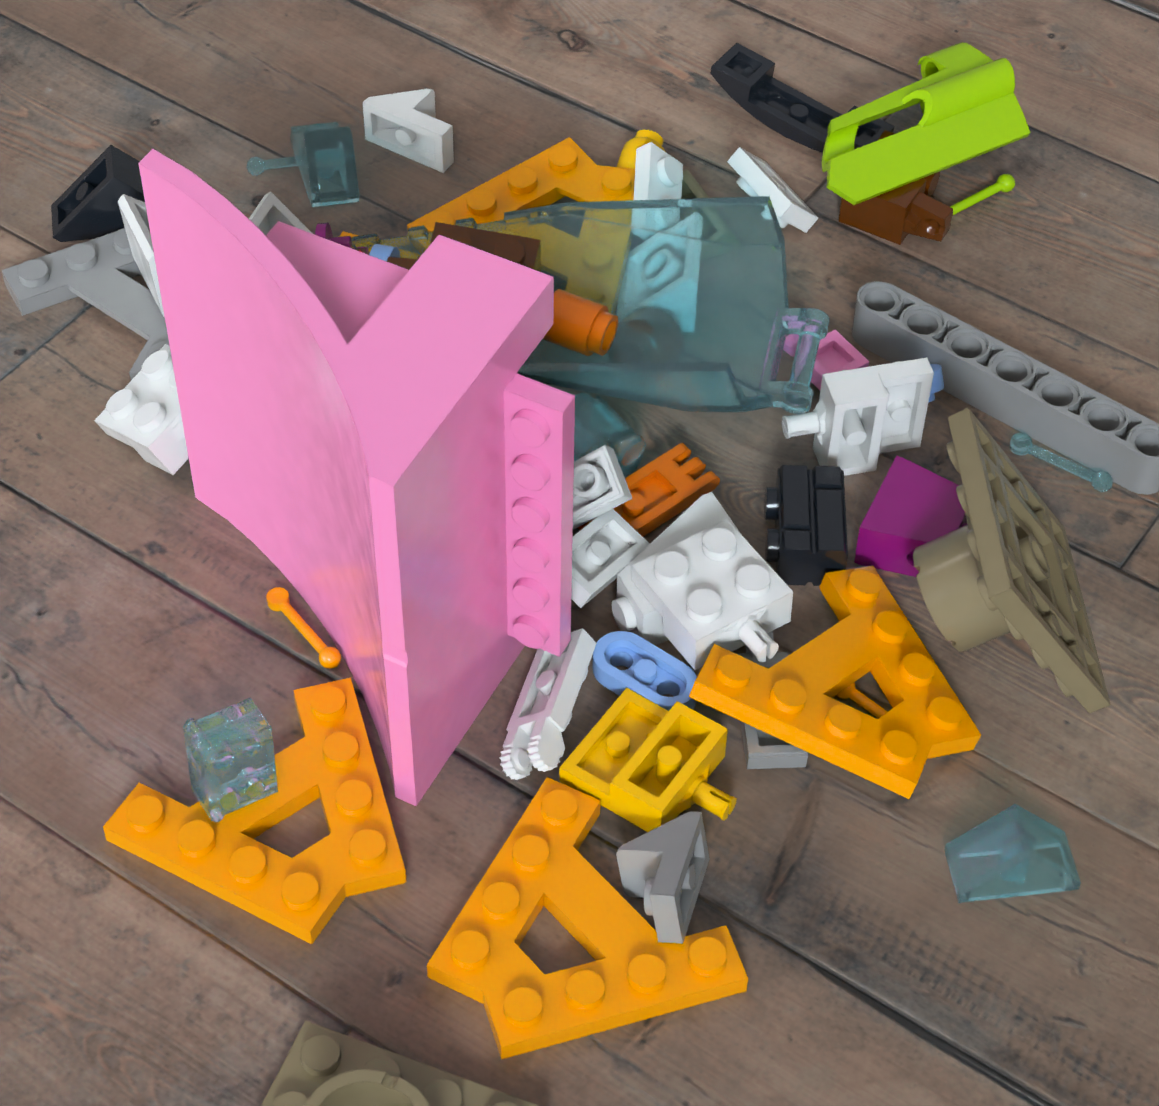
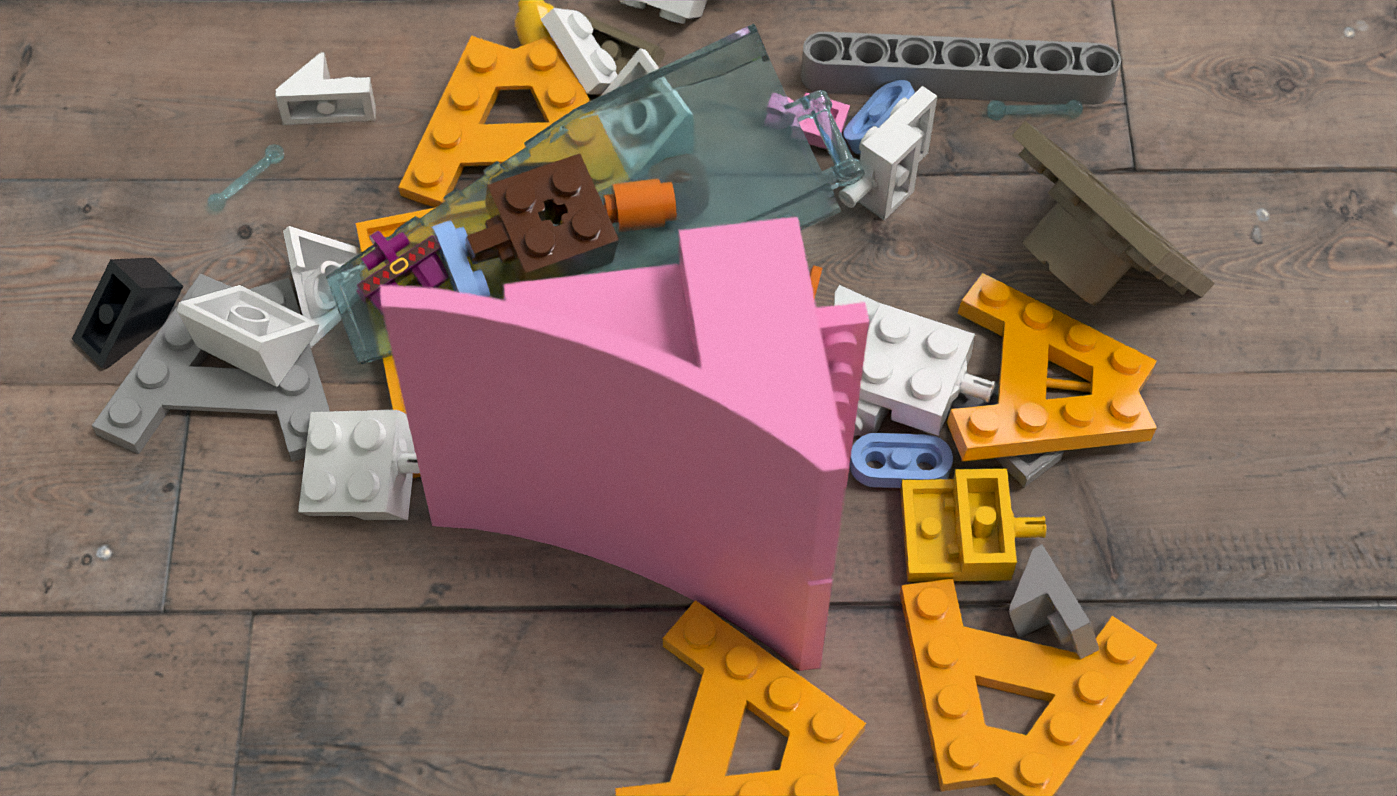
camera: 35 degrees left, 10 degrees up
(230, 758) = (692, 727): clear light blue piece -> none
(279, 600) = (577, 572): light orange hinge -> none
(326, 163) = (279, 166): clear light blue slope -> none
(546, 708) = (864, 537): white hinge -> none
(808, 523) = (915, 267): black brick -> none
(906, 513) = (987, 219): magenta torso -> none
(1011, 858) = (1244, 444): clear light blue slope -> none

